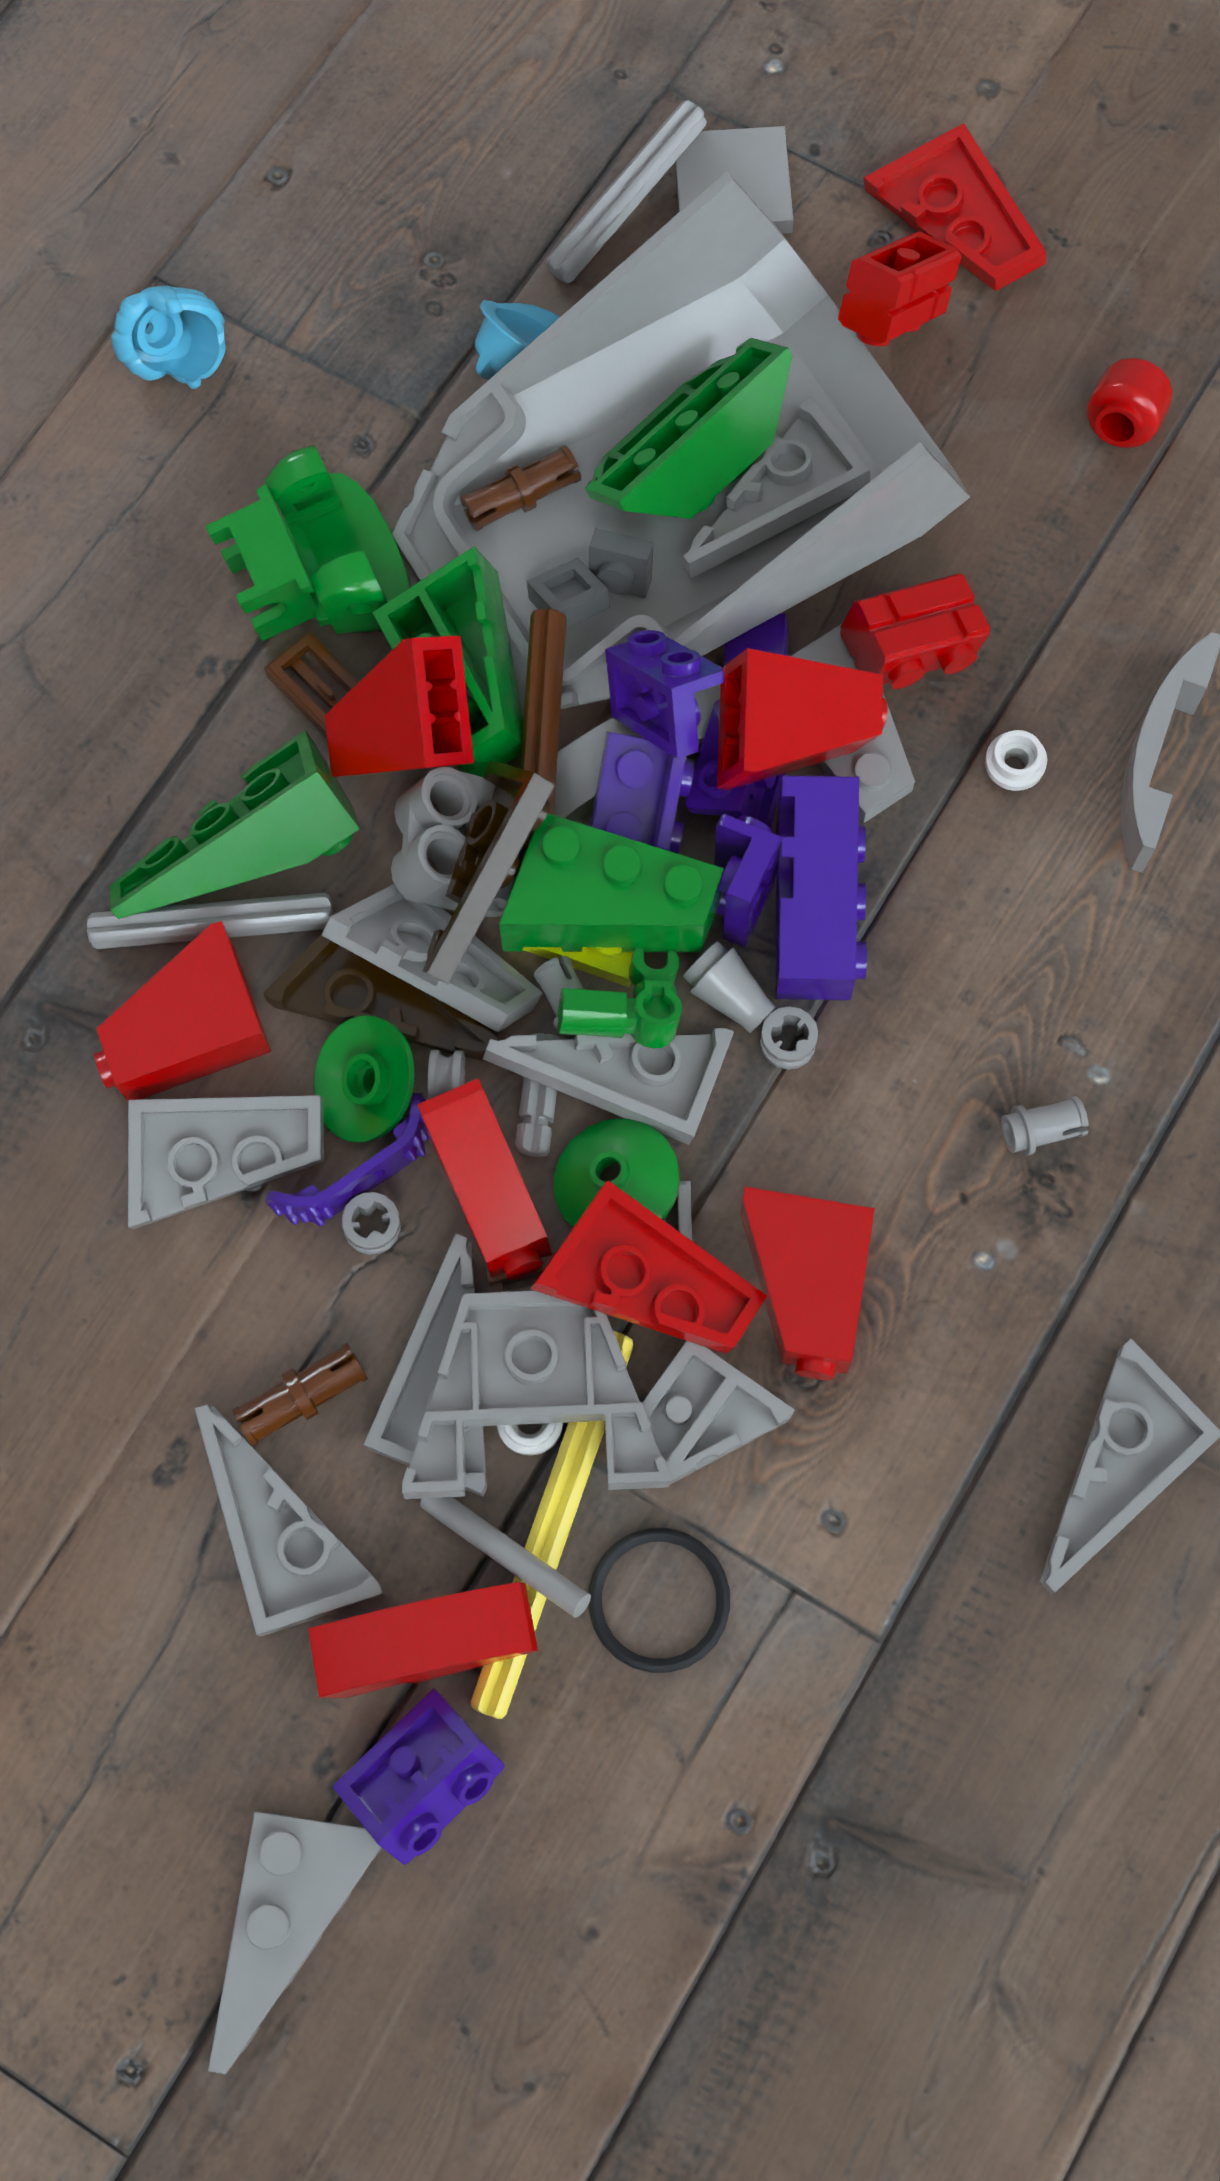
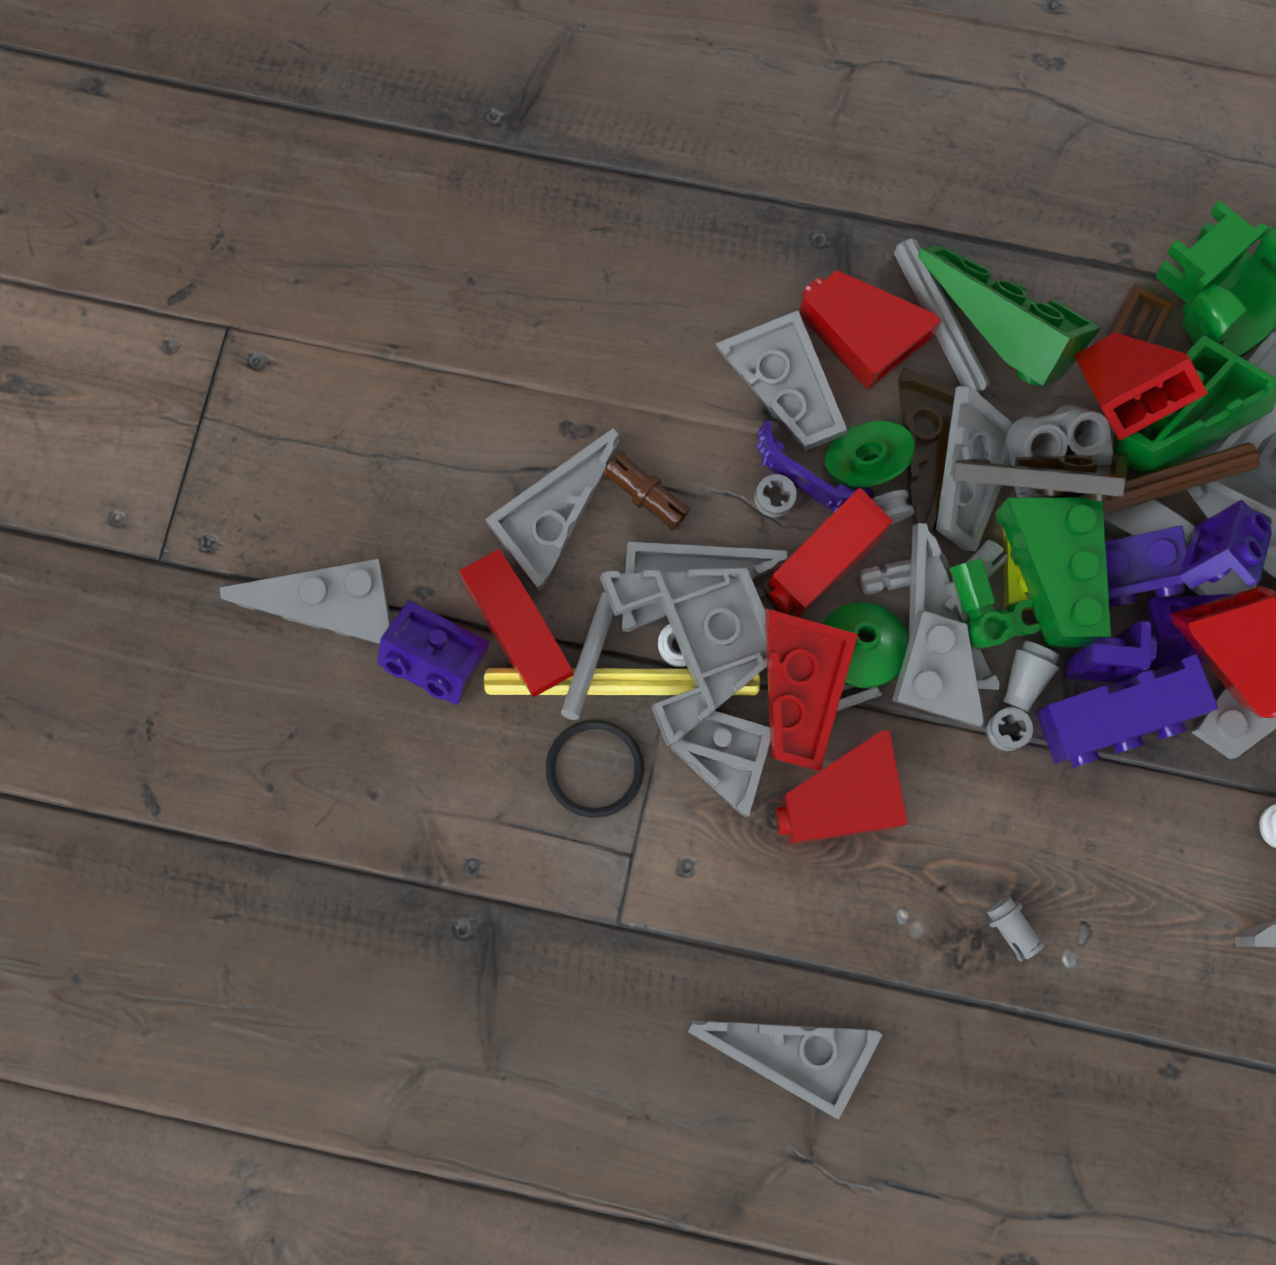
camera: 65 degrees right, 5 degrees up
(687, 1095) = (940, 670): none -> light grey wing

